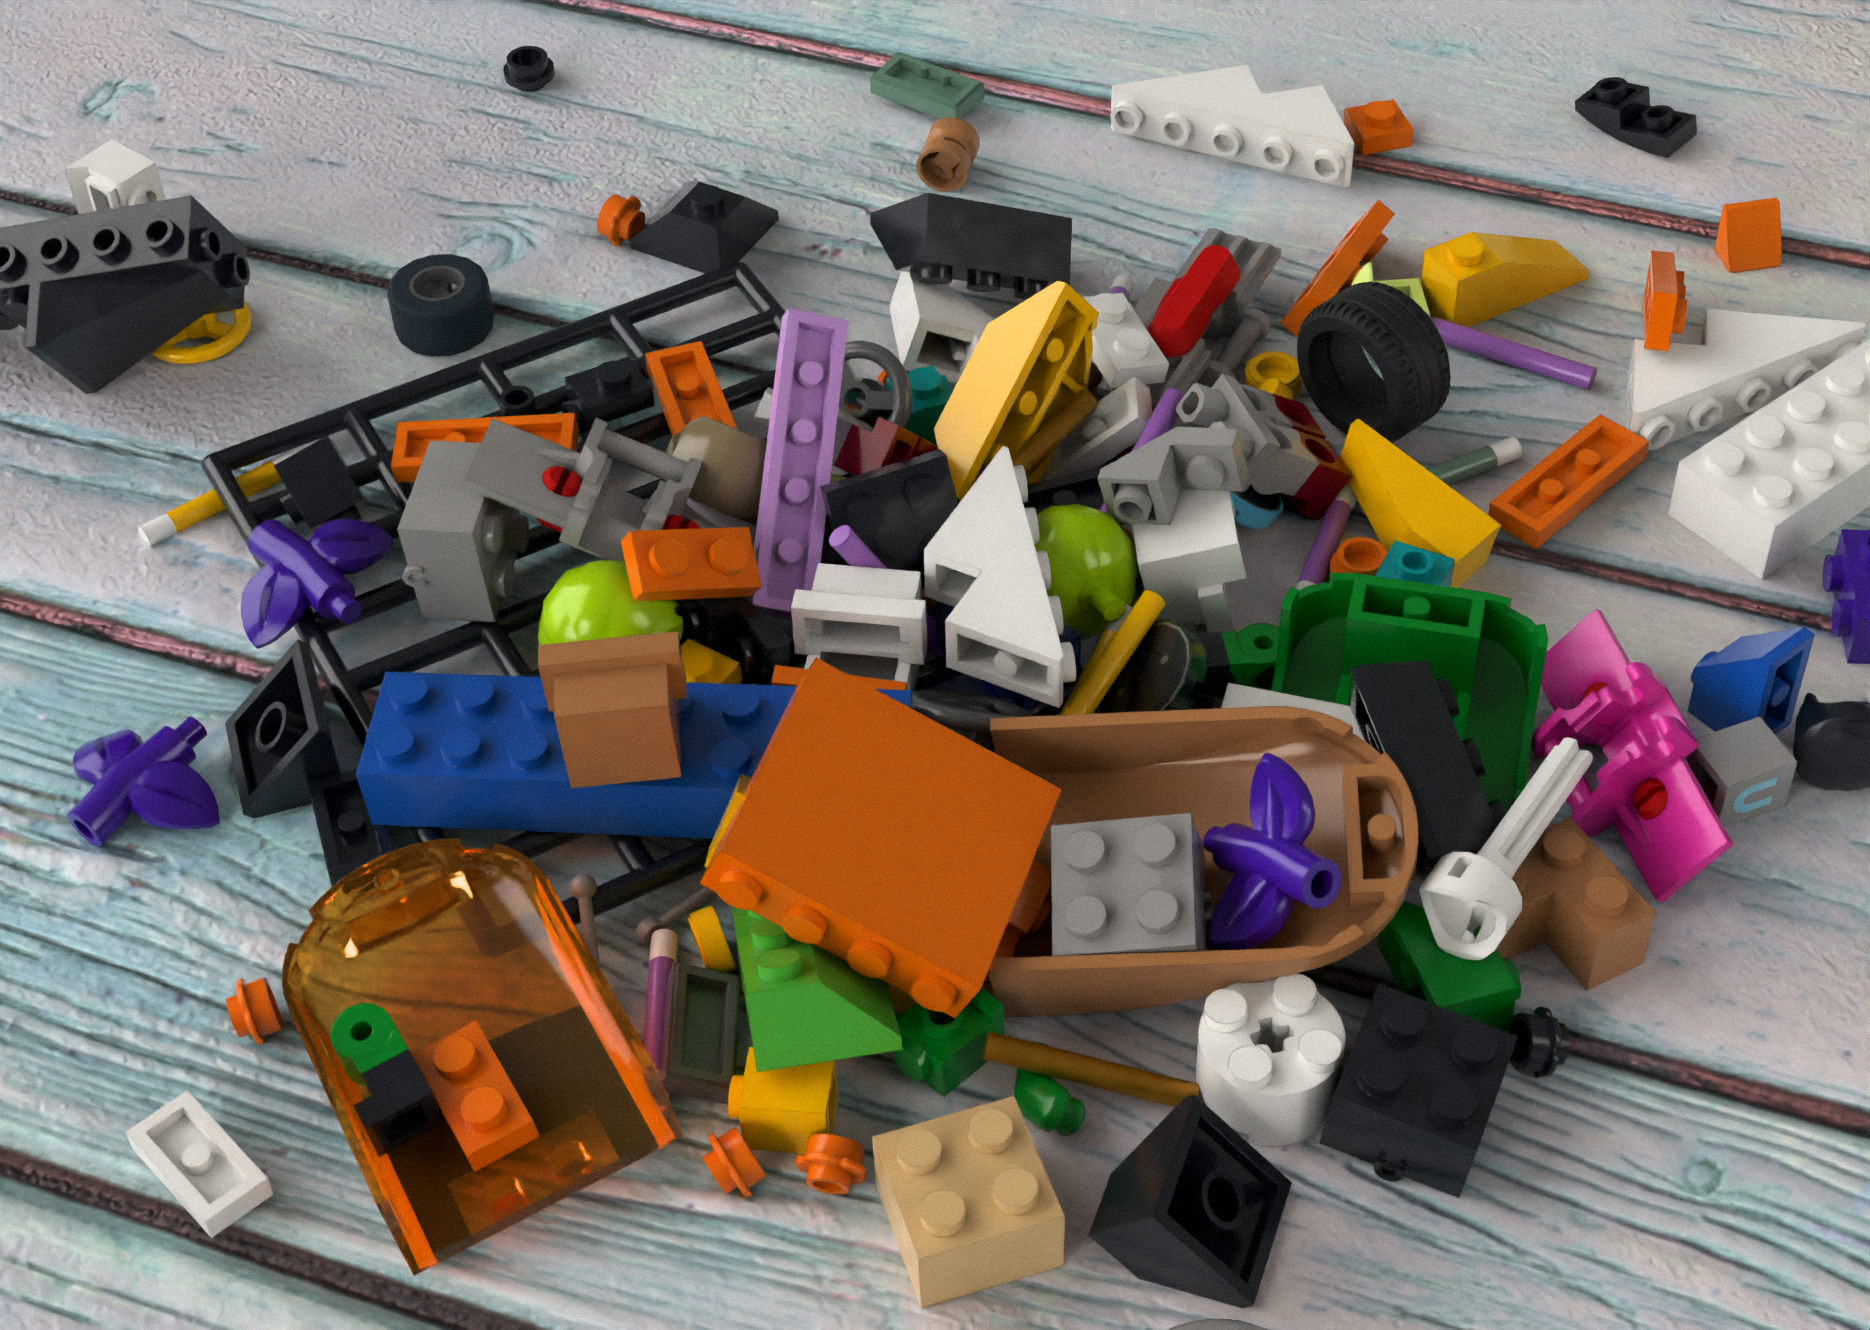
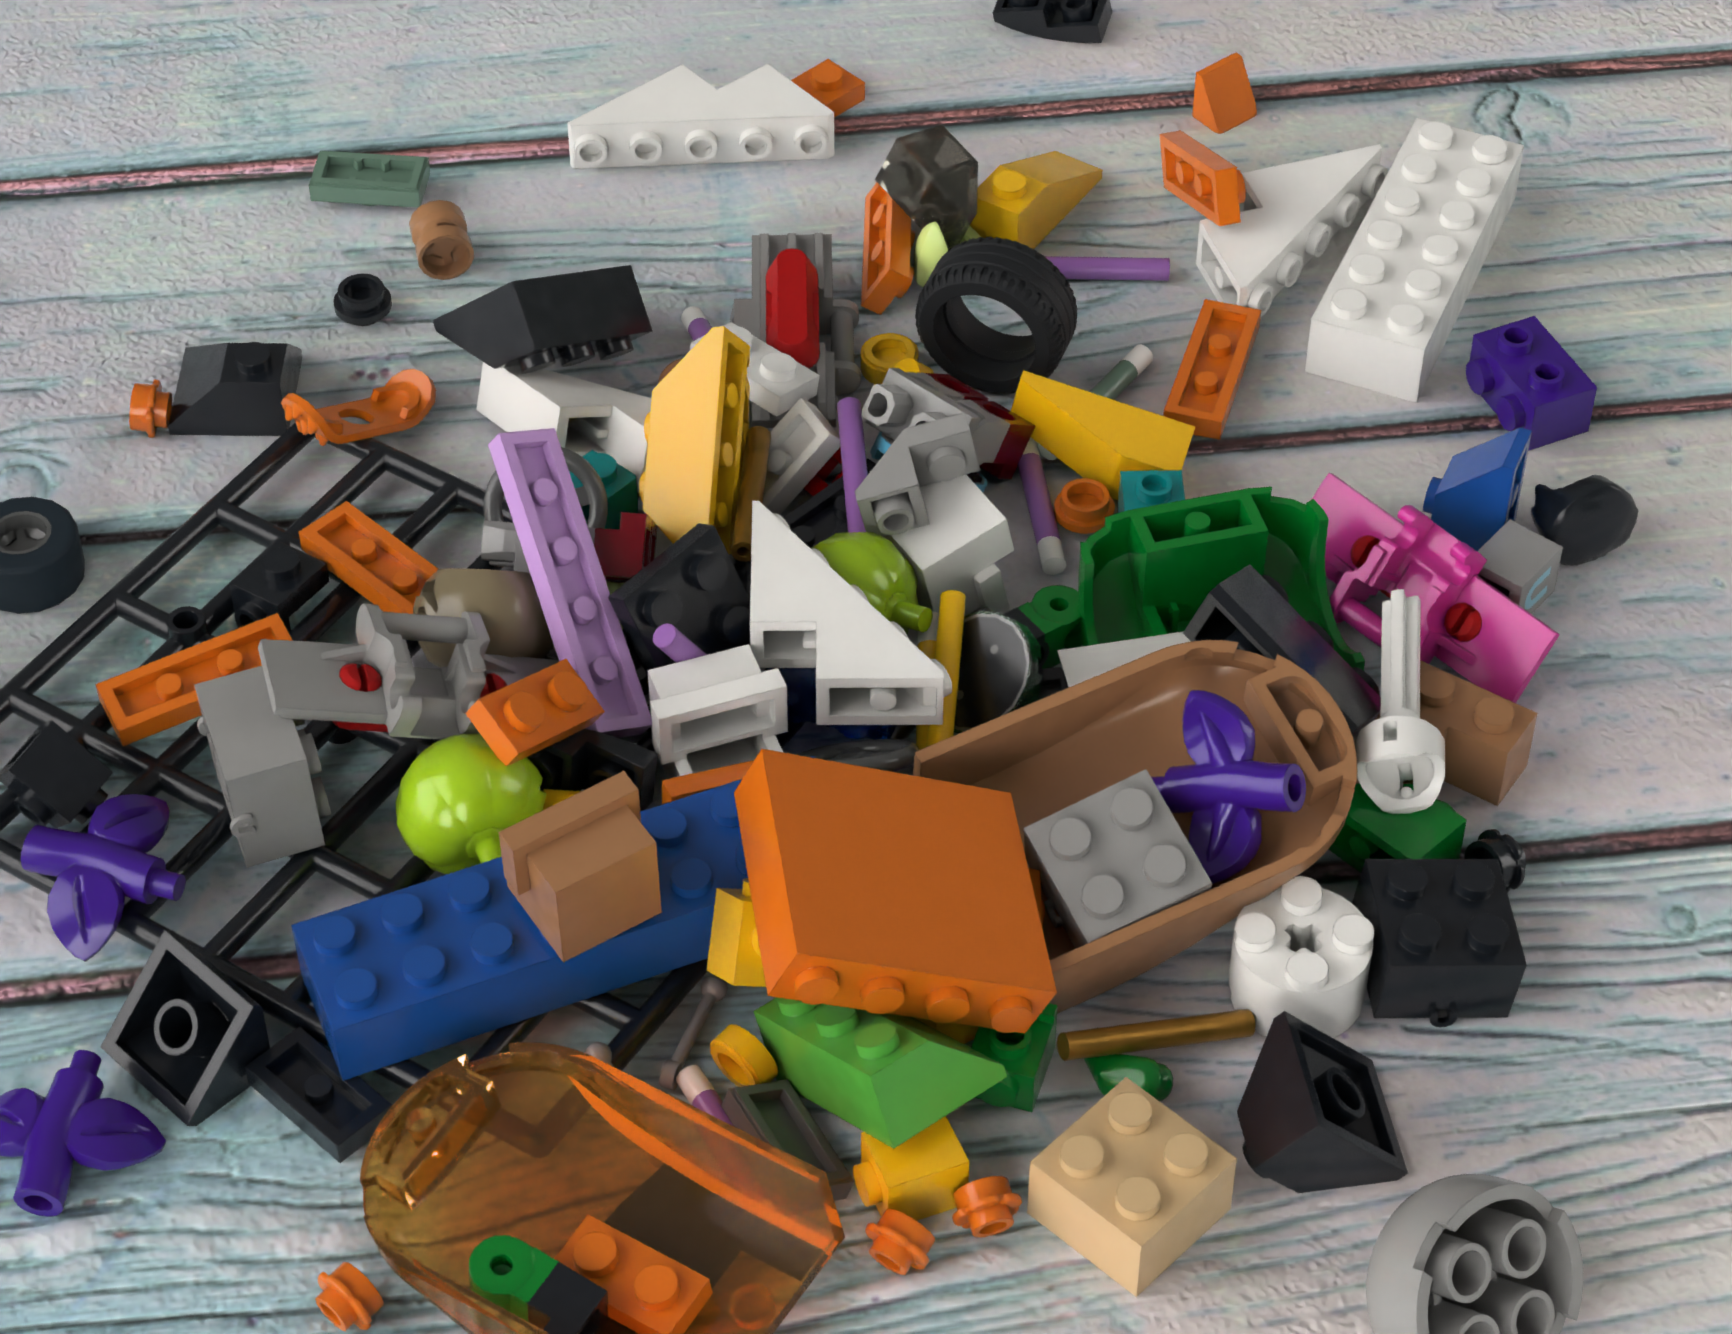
camera: 30 degrees left, 0 degrees up
(813, 283) = (390, 409): none -> orange piece
(852, 185) = (362, 300): none -> black plate
(1393, 223) = (933, 181): none -> clear smoke slope

